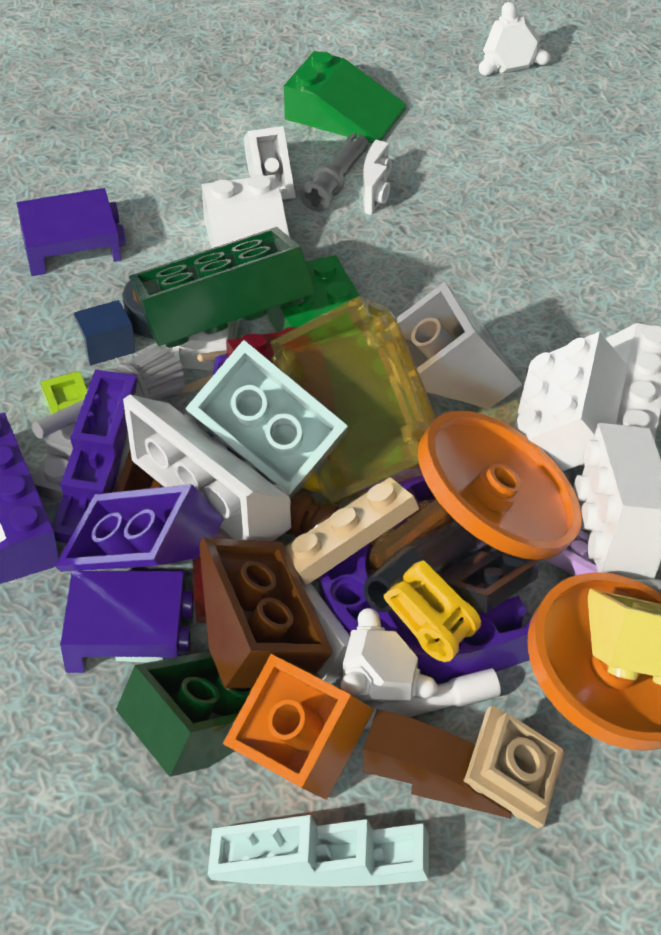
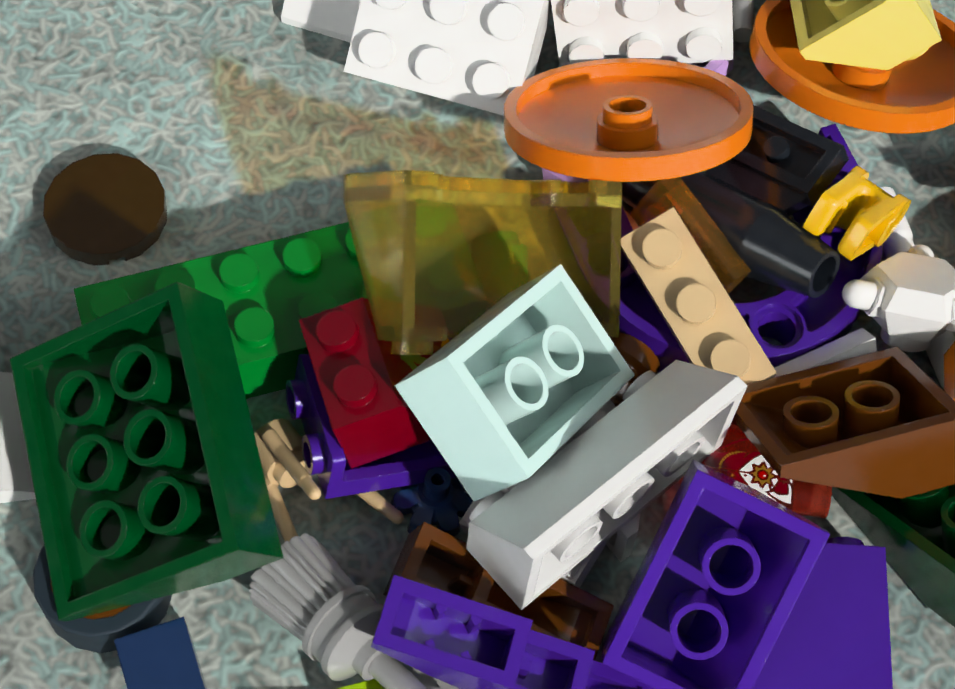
camera: 90 degrees left, 15 degrees up
(411, 278) = (105, 208): none -> dark brown tile
(456, 351) = (320, 141): light grey slope -> none

